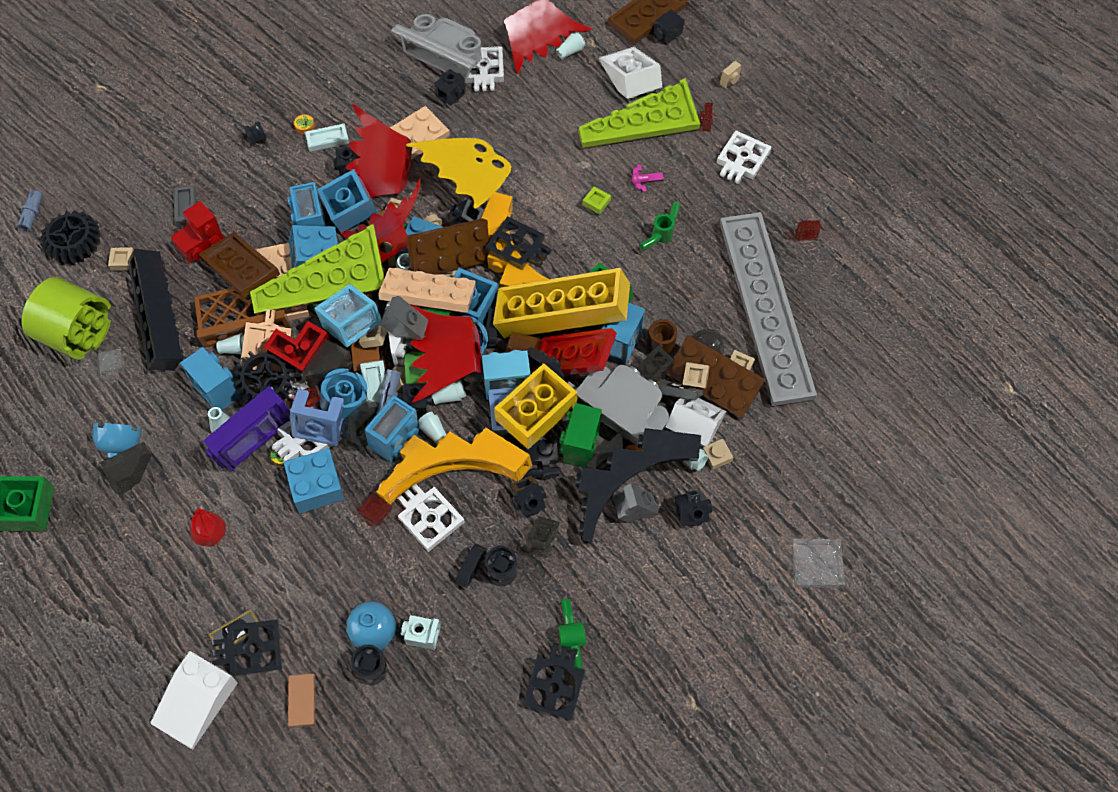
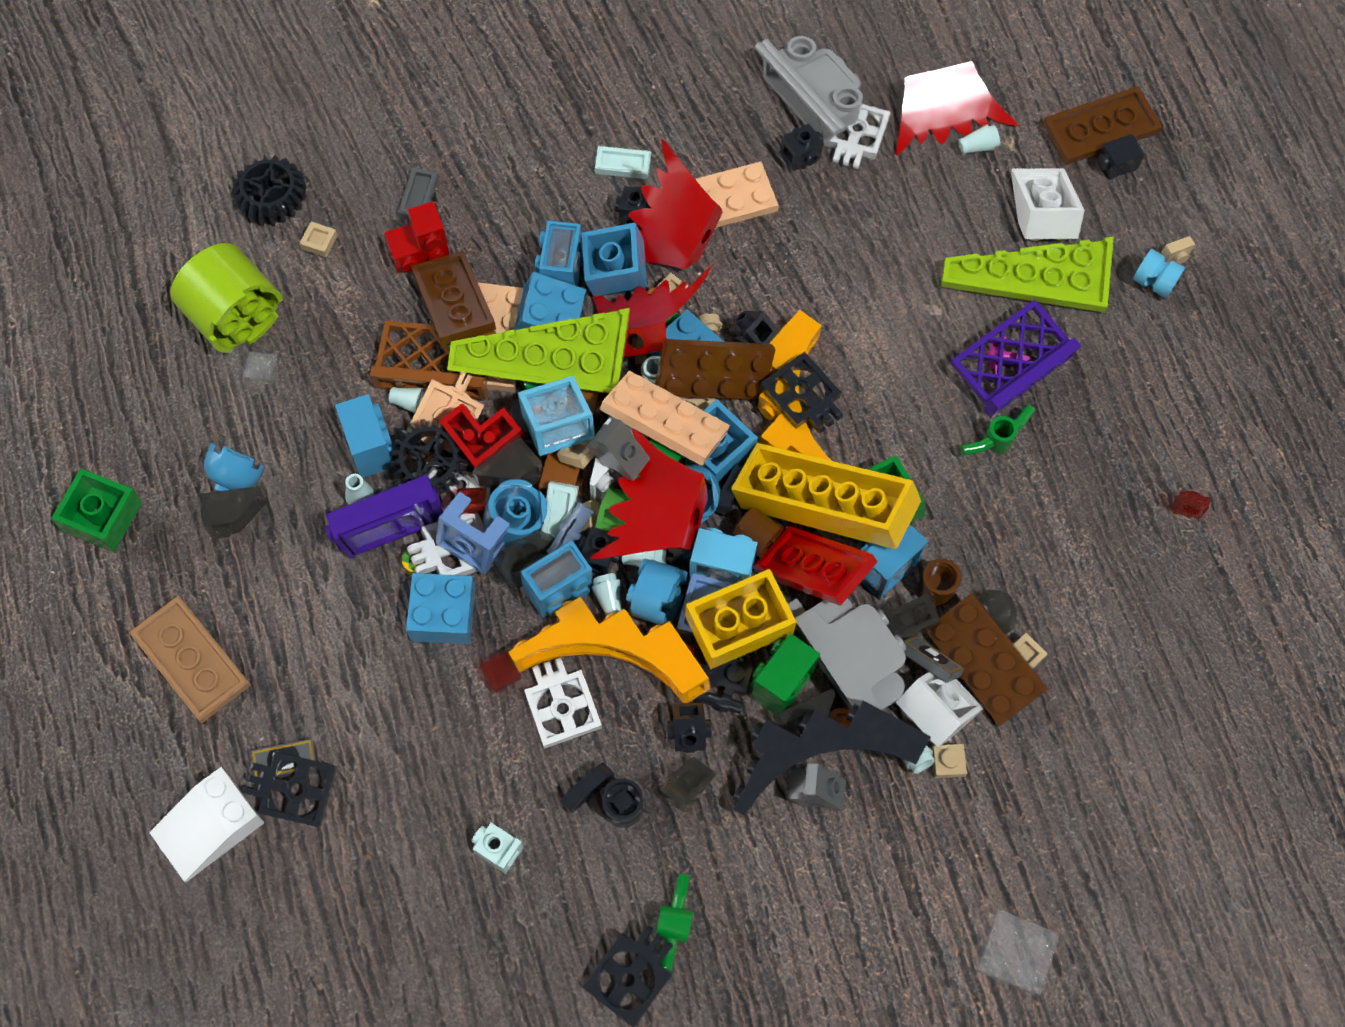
camera: 20 degrees right, 5 degrees up
(29, 211) = (234, 139): sand blue pin -> none
(134, 586) = (189, 659): none -> medium nougat tile
(155, 310) = (333, 321): black brick -> none
(206, 528) = (297, 619): red hat -> none
(255, 133) = (536, 127): black wheel -> none
(301, 701) = (328, 875): nougat tile -> none
(304, 123) = (601, 134): tile -> none
(369, 664) = (420, 864): black wheel -> none
(371, 625) = (441, 816): dark azure cylinder -> none
(458, 162) = (769, 258): yellow piece -> none
(468, 412) = (657, 592): none -> dark azure brick
(539, 357) = (771, 558): black plate -> none
(596, 200) = (929, 366): lime plate -> none
(664, 187) = (1025, 378): none -> dark purple fence
(693, 508) = (887, 821): black brick -> none
(696, 375) = (960, 650): tan plate -> none
(706, 117) = (1119, 300): clear red plate -> none
(724, 91) = (1158, 273): none -> medium azure wheel
(736, 168) = (1131, 383): white piece -> none
(767, 310) = (1092, 592): light grey plate -> none

